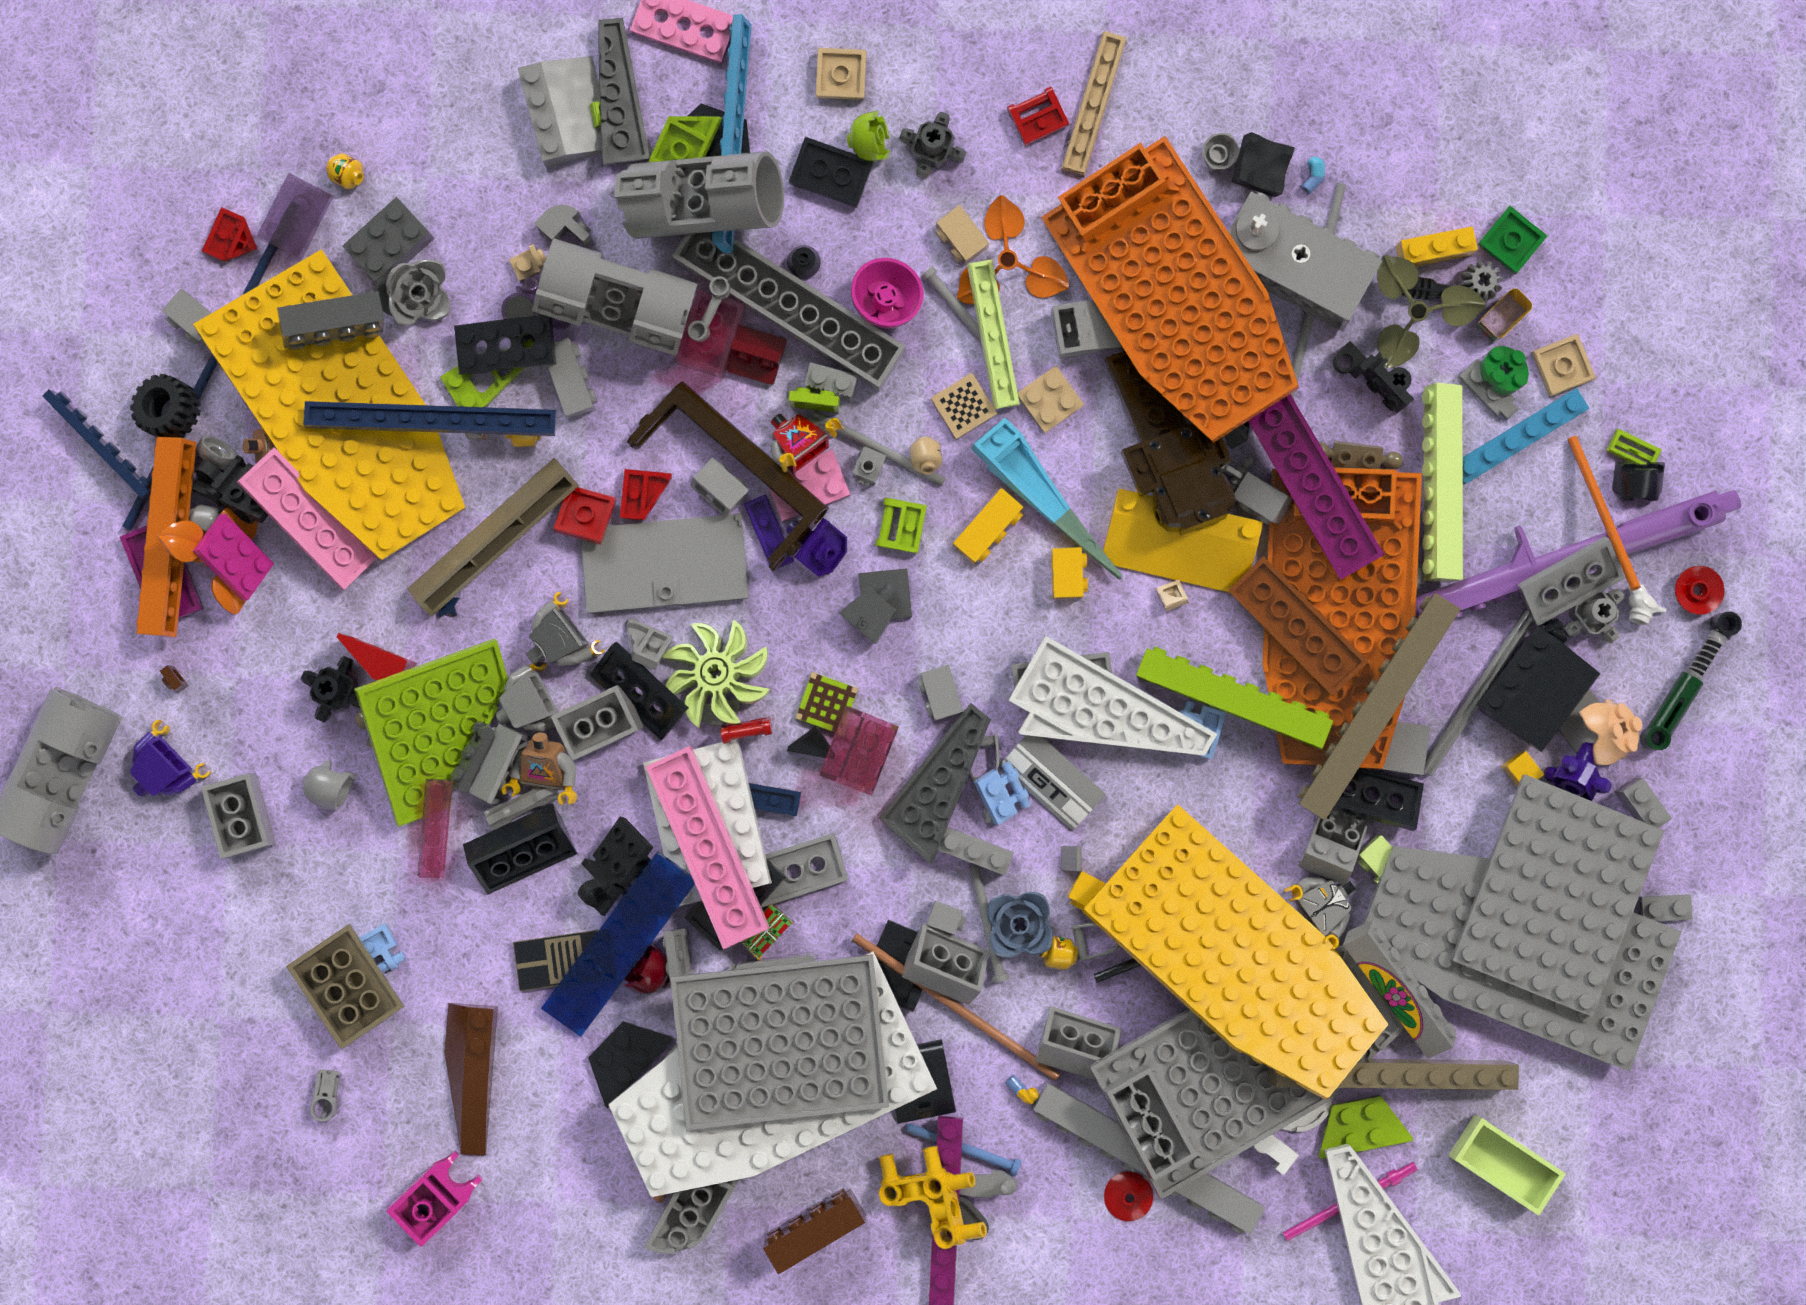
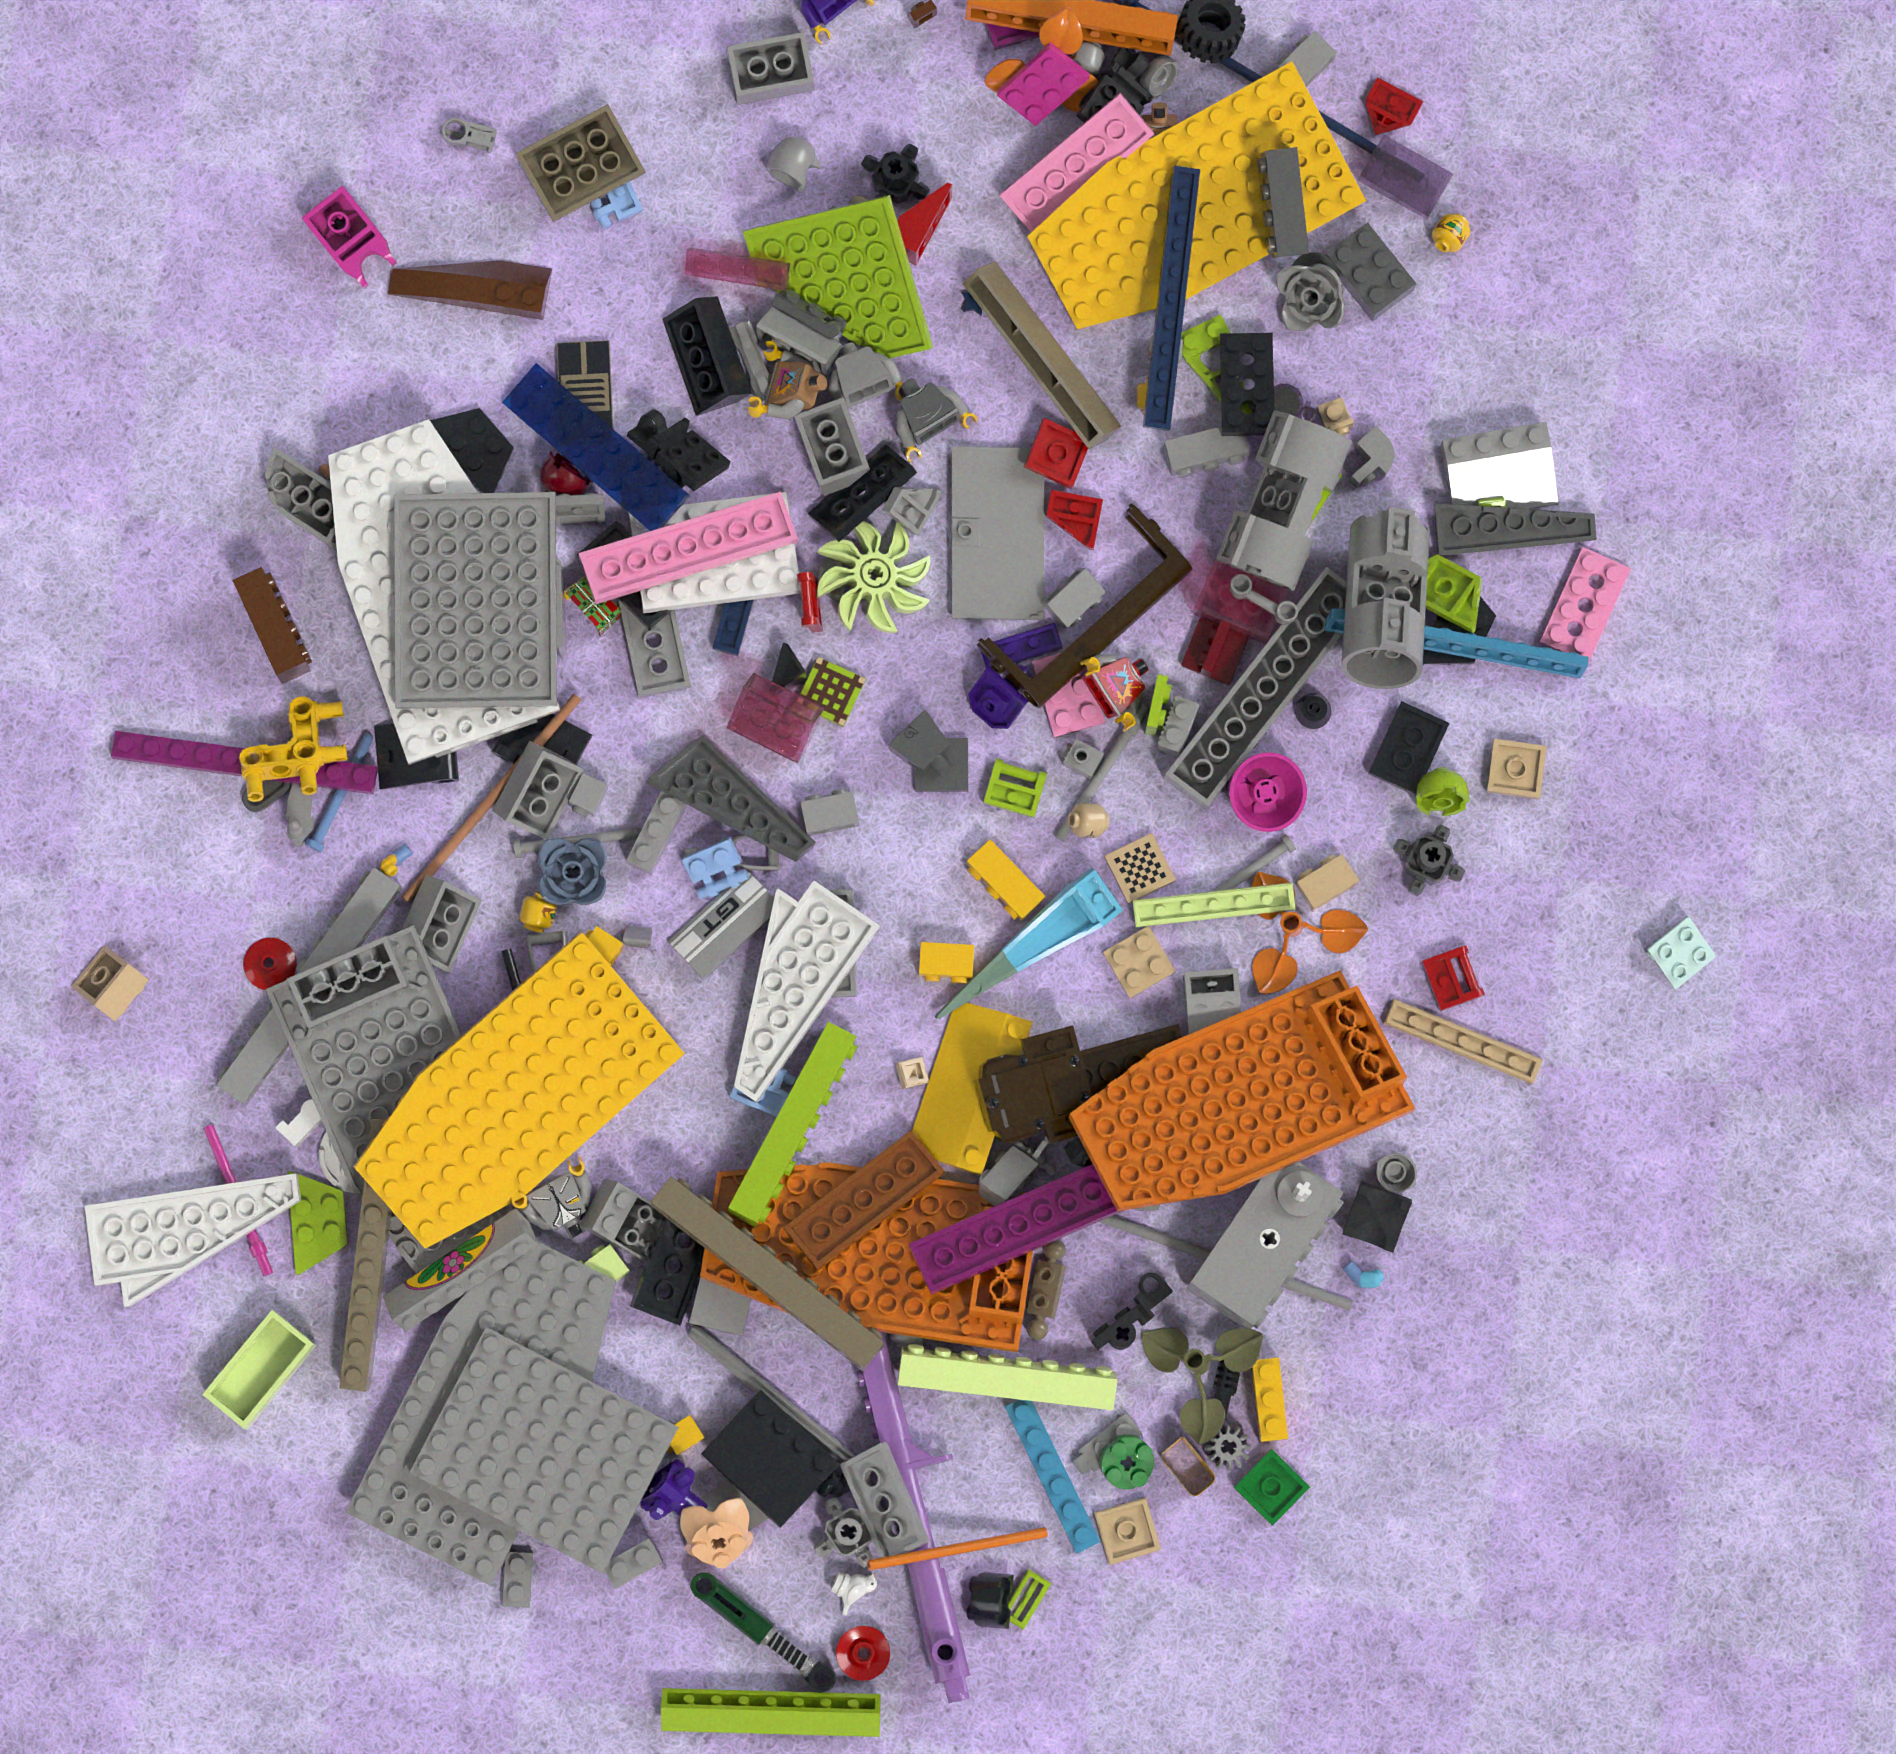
camera: 95 degrees right, 5 degrees down
(1763, 667) = (770, 1712): none -> lime brick

